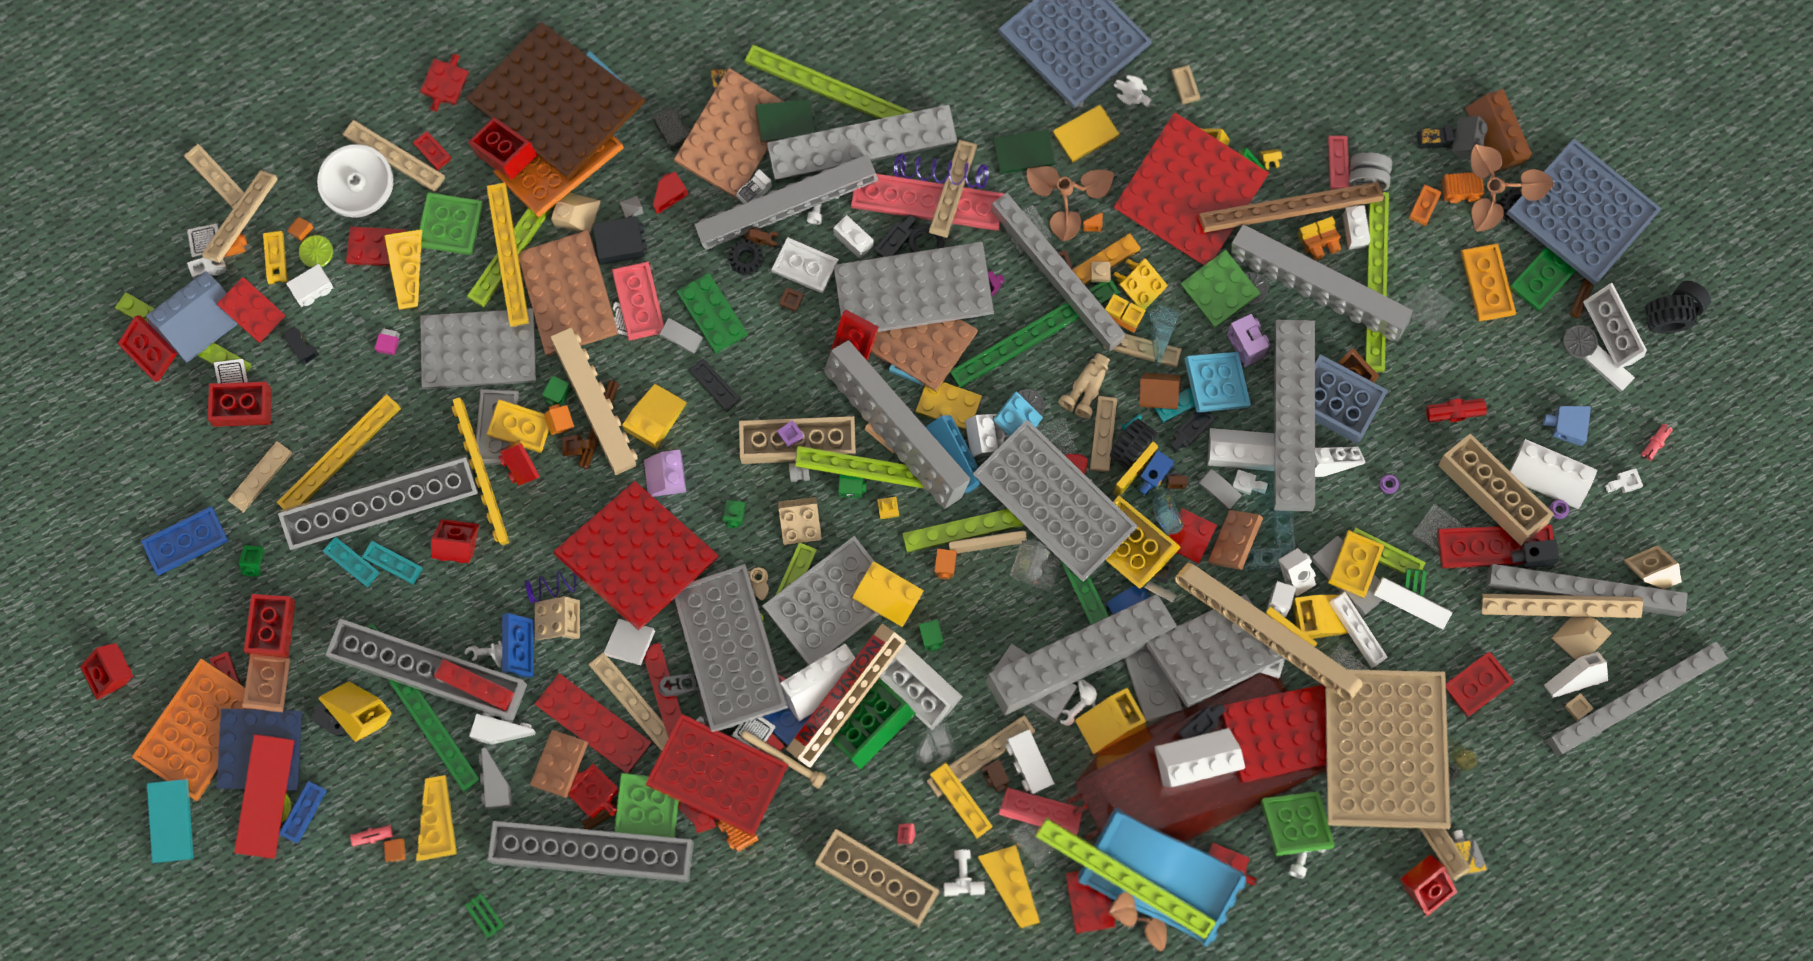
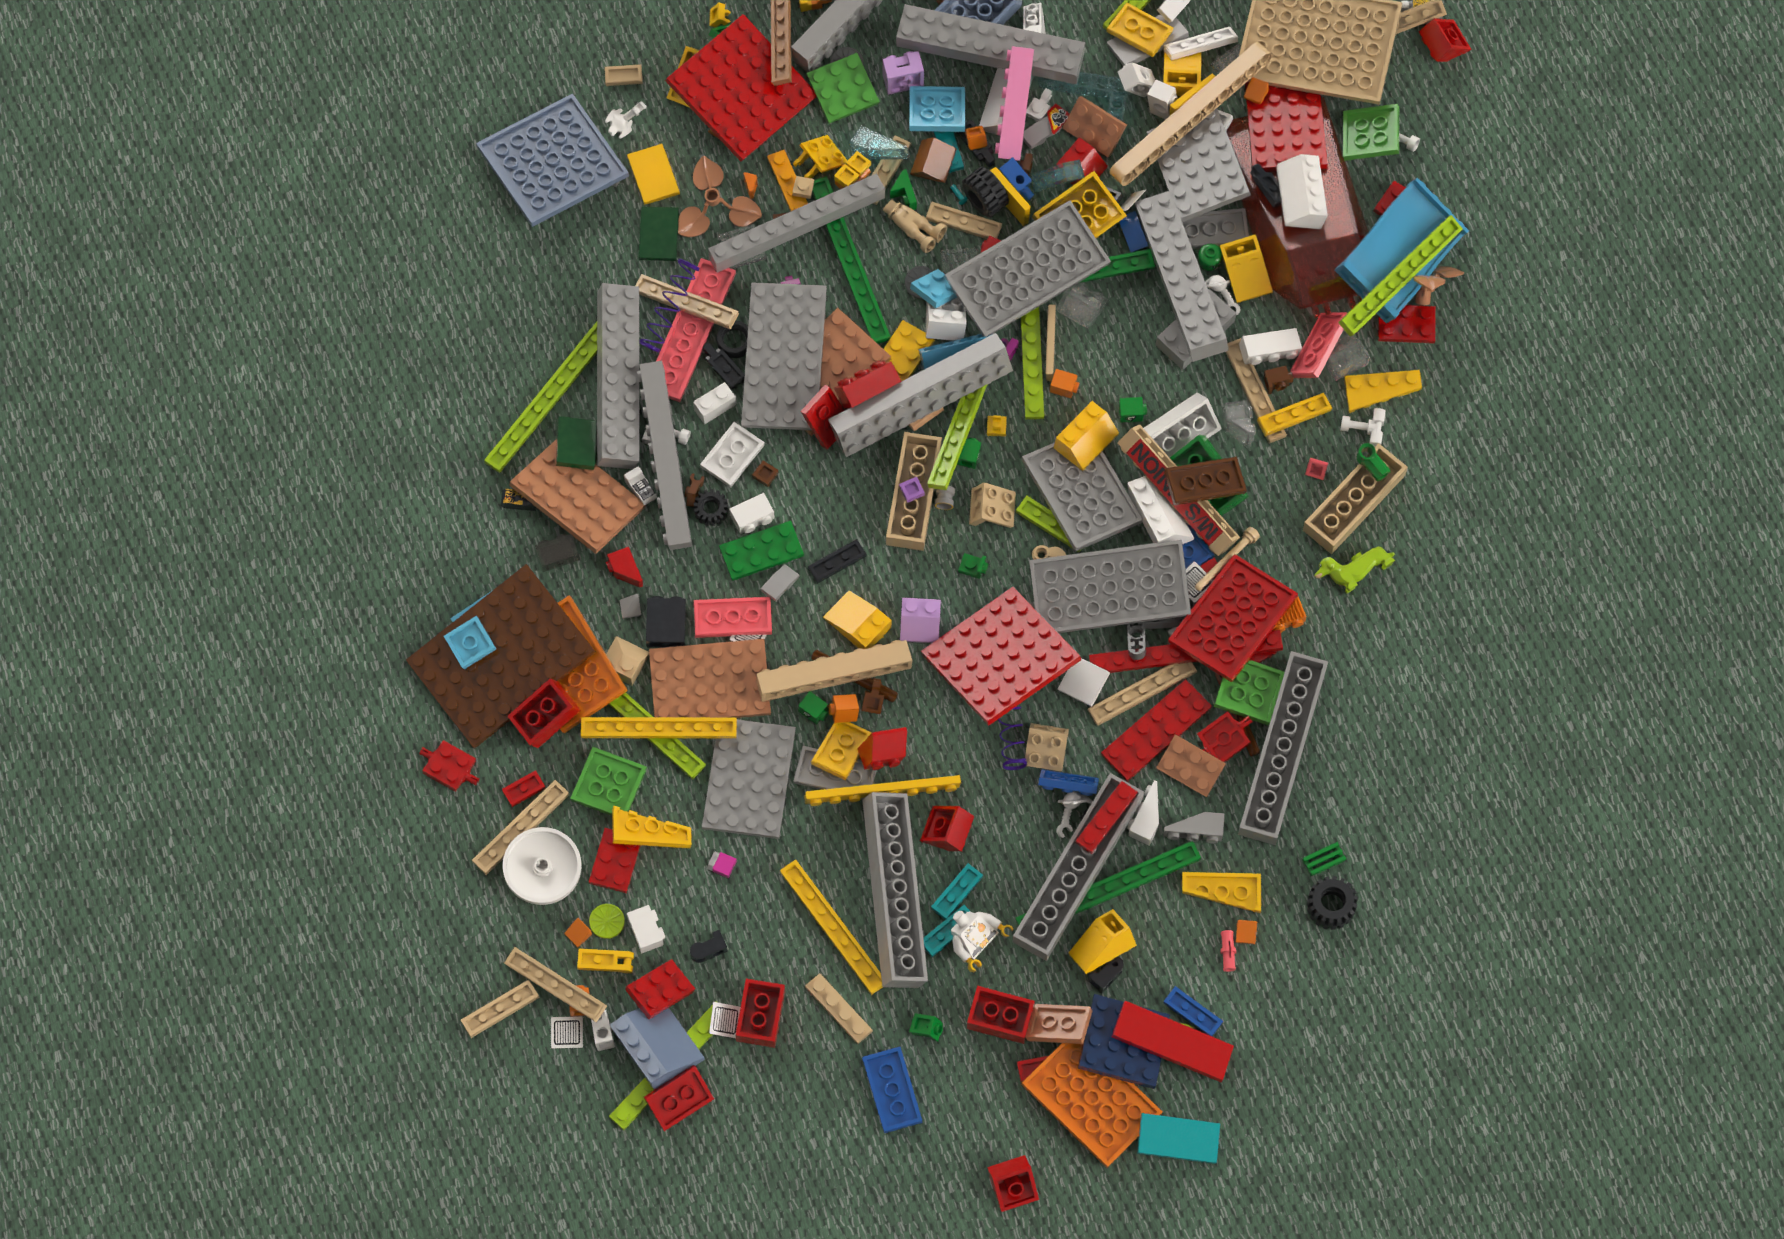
camera: 80 degrees left, 5 degrees down
(347, 585) = (973, 934): none -> white torso
(418, 924) = (1337, 888): none -> black tyre
(558, 67) = (470, 642): none -> medium azure plate
(745, 295) = (752, 513): none -> white brick
(800, 894) = (1356, 570): none -> lime animal
(855, 717) = (1205, 480): none -> reddish brown tile
(894, 369) = (867, 383): none -> red brick
(910, 888) = (1374, 463): none -> green piece
(971, 504) = (1011, 346): none -> magenta tile
(1116, 681) = (1209, 257): none -> green head
(1126, 367) = (904, 188): none -> green slope
(1194, 425) = (976, 137): none -> orange slope
(1232, 450) = (1016, 100): none -> bright pink brick
(1239, 501) = (1057, 117): none -> sticker
(1313, 695) = (1256, 90): none -> orange slope

